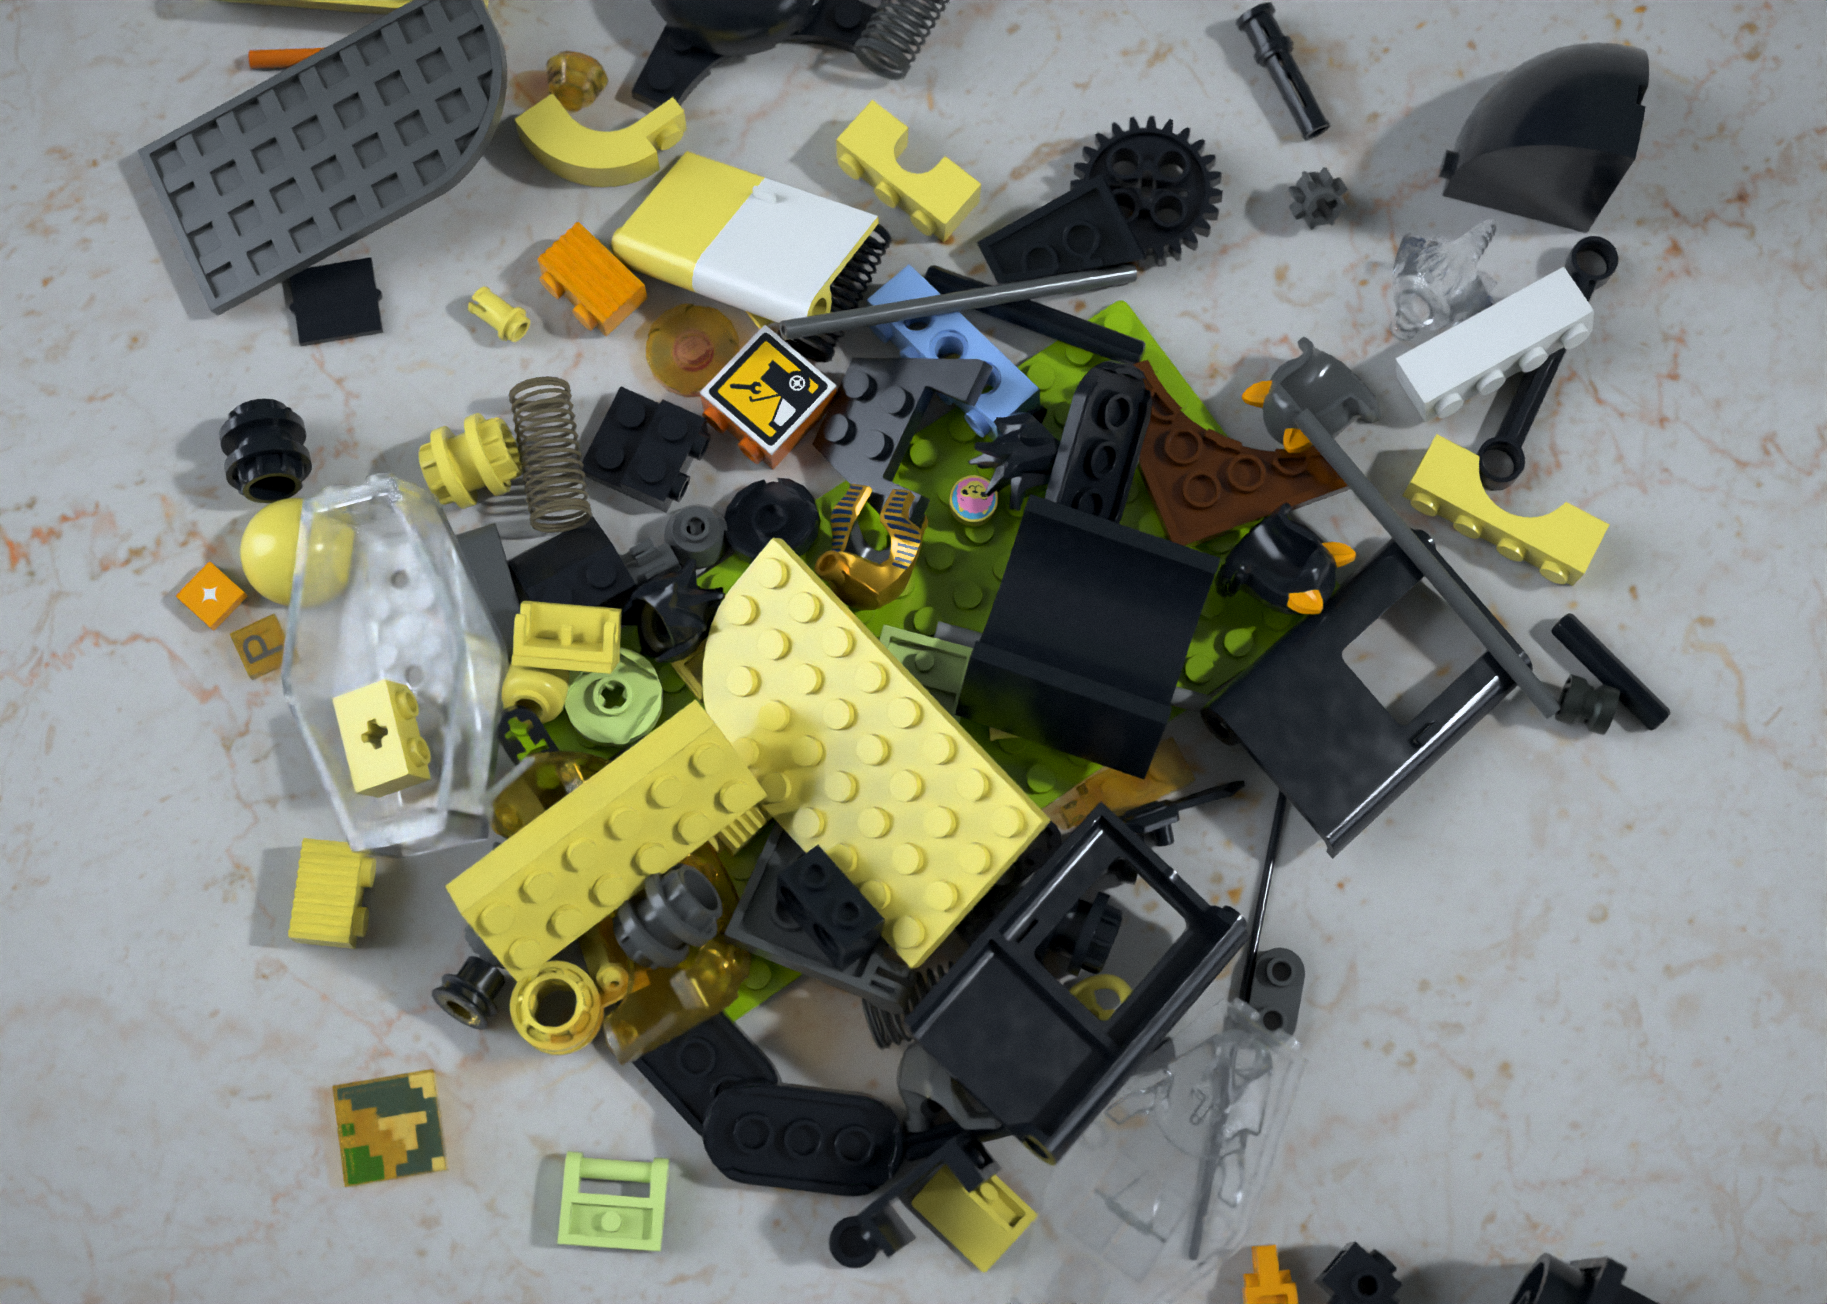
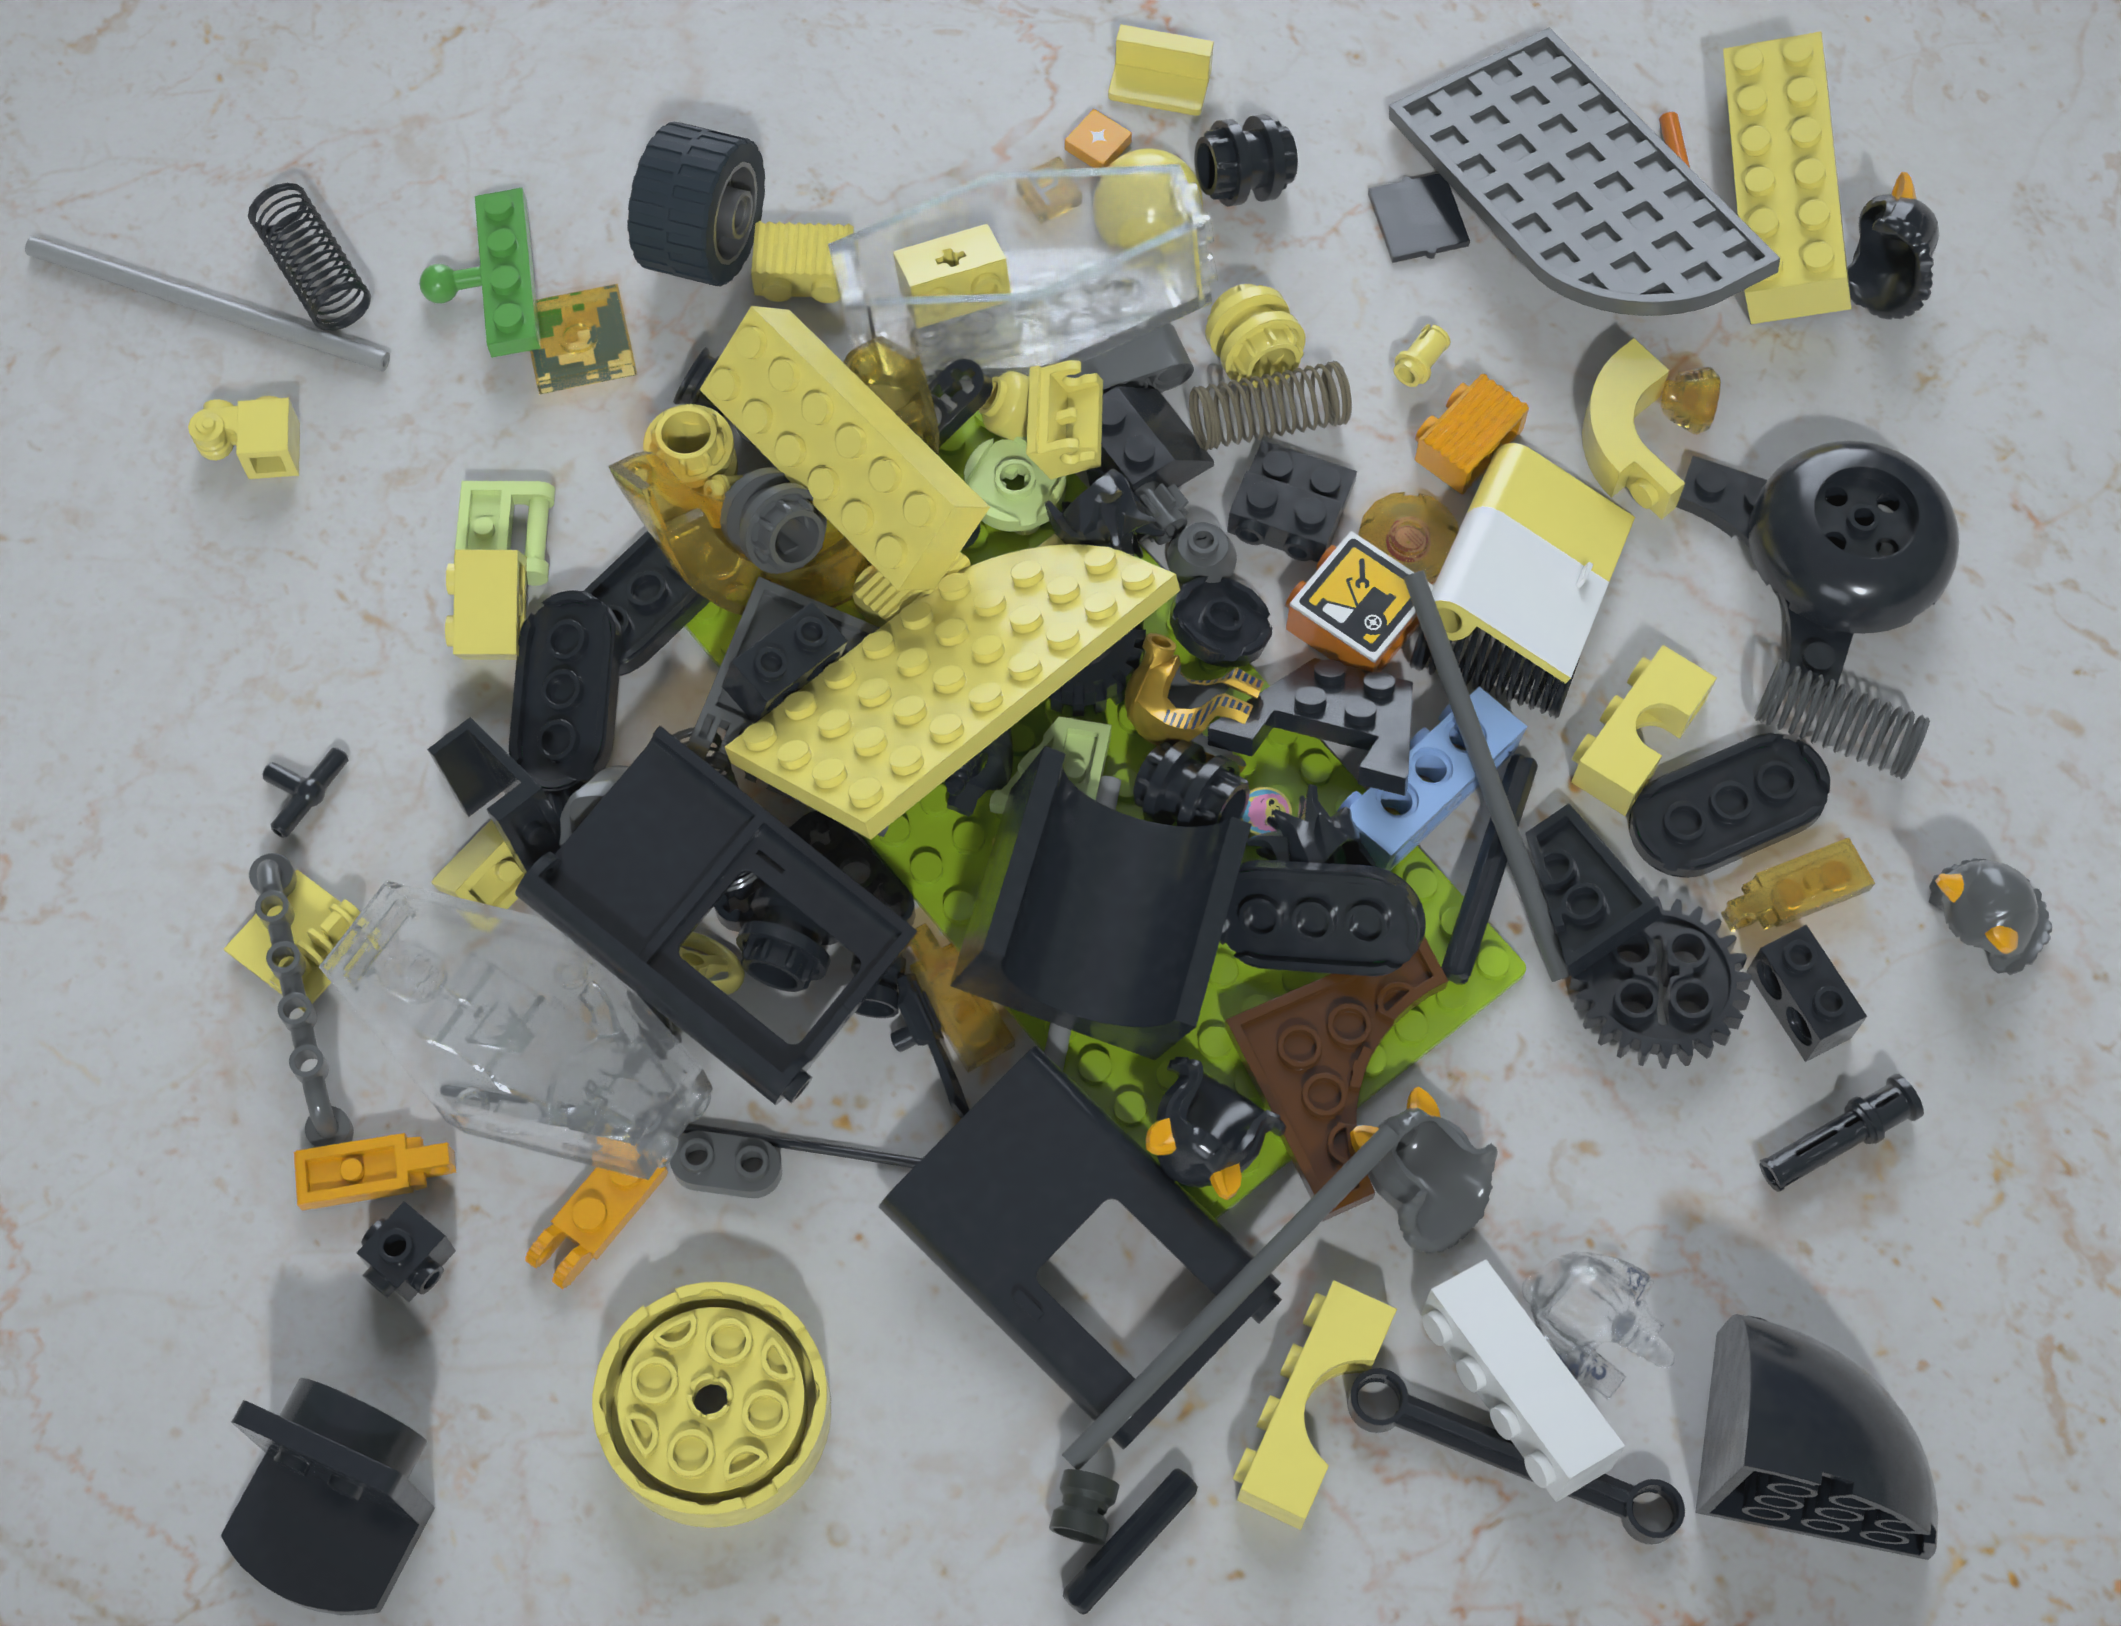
camera: 90 degrees right, 10 degrees down
(137, 528) = (1161, 70): none -> light yellow panel
(270, 991) = (696, 203): none -> black wheel
(307, 1203) = (503, 273): none -> bright green plate
(706, 1212) = (487, 603): none -> light yellow brick
(960, 557) = (1185, 789): none -> black piece
(978, 111) = (1729, 805): none -> black tile
(1063, 67) = (1800, 887): none -> clear yellow hinge
(1164, 76) = (1806, 993): none -> black brick
(1318, 198) = (1681, 1173): dark grey gear -> none
(1324, 1119) = (592, 1220): none -> light orange hinge
(1458, 1043) = (722, 1463): none -> light yellow brick

